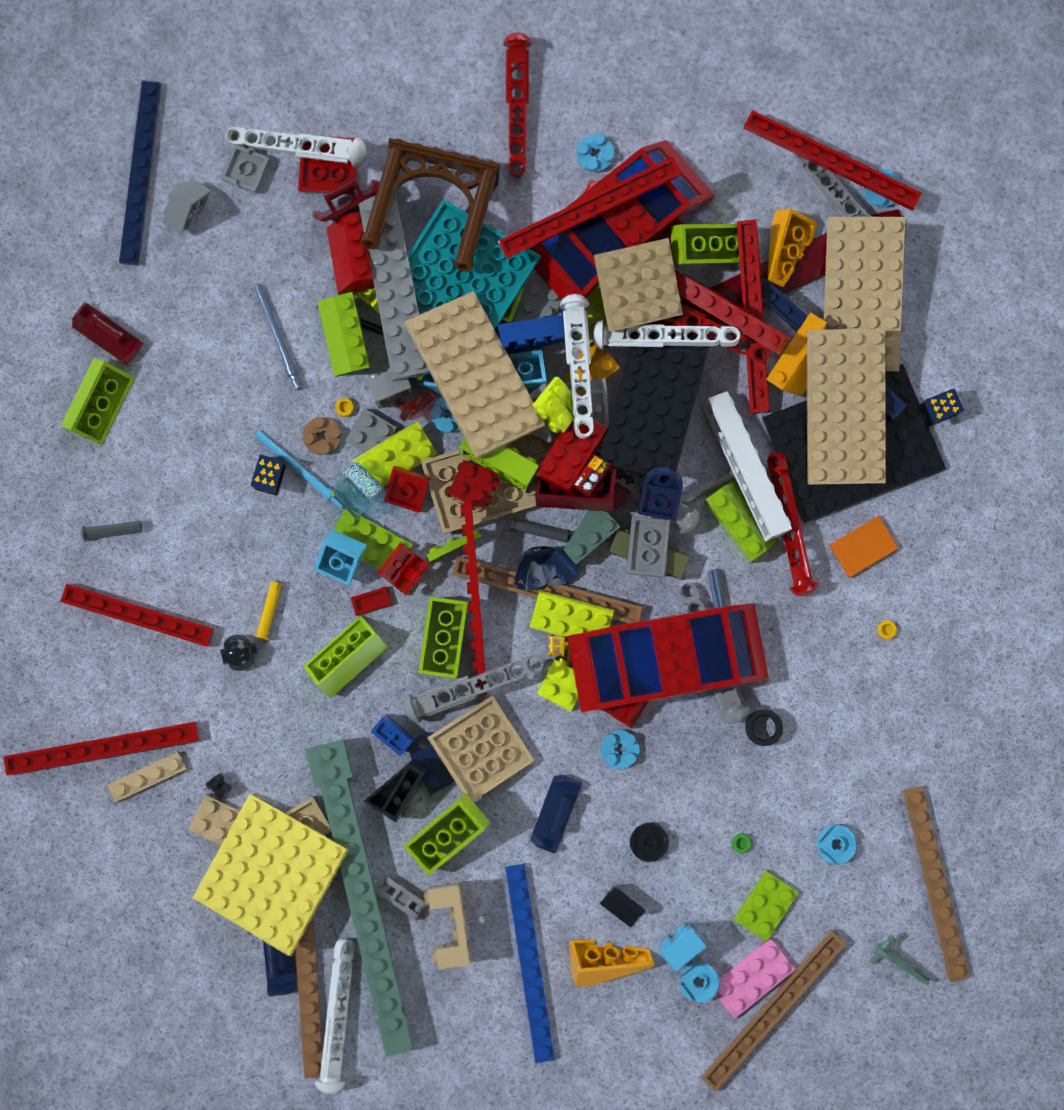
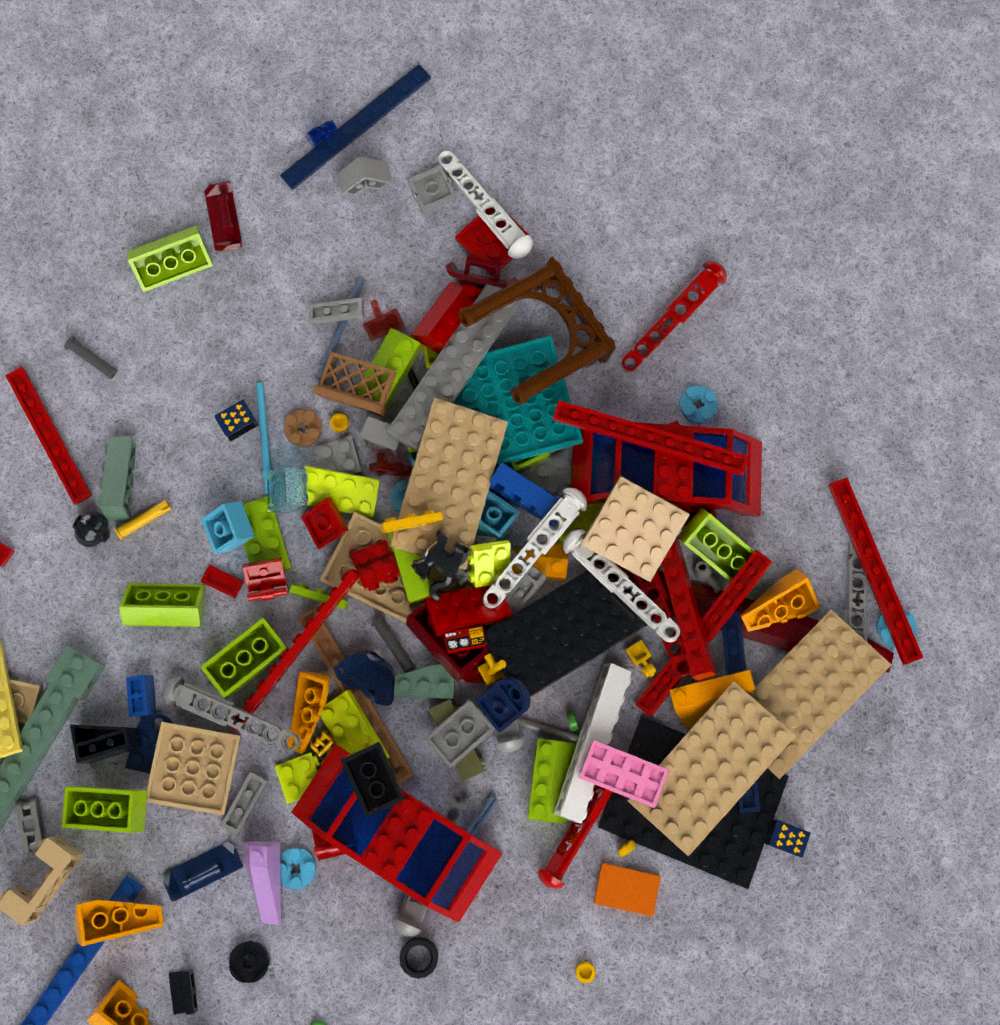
camera: 45 degrees right, 5 degrees down
(120, 201) = (320, 133): none -> clear blue brick
(221, 597) = (117, 478): none -> sand green wedge
(264, 326) = (336, 311): none -> light grey plate
(305, 304) = (383, 322): none -> clear red plate
(342, 379) = (346, 397): none -> medium nougat fence
(476, 425) = (411, 521): none -> yellow plate
(521, 626) = (308, 706): none -> light orange wedge
(525, 904) = (107, 920): none -> light orange wedge
(527, 432) = (443, 560): none -> black animal
(540, 739) = (244, 803): none -> light grey plate
(601, 773) = (263, 871): none -> lavender wedge
(623, 629) = (372, 779): none -> black brick
(629, 480) = (491, 670): none -> yellow arm
(716, 274) = (706, 575): none -> light grey bar
(718, 465) = (572, 721): none -> bright green tile
(720, 375) = (639, 654): none -> yellow plate
(789, 466) = (623, 773): none -> bright pink plate
(837, 518) = (626, 848): none -> yellow tile

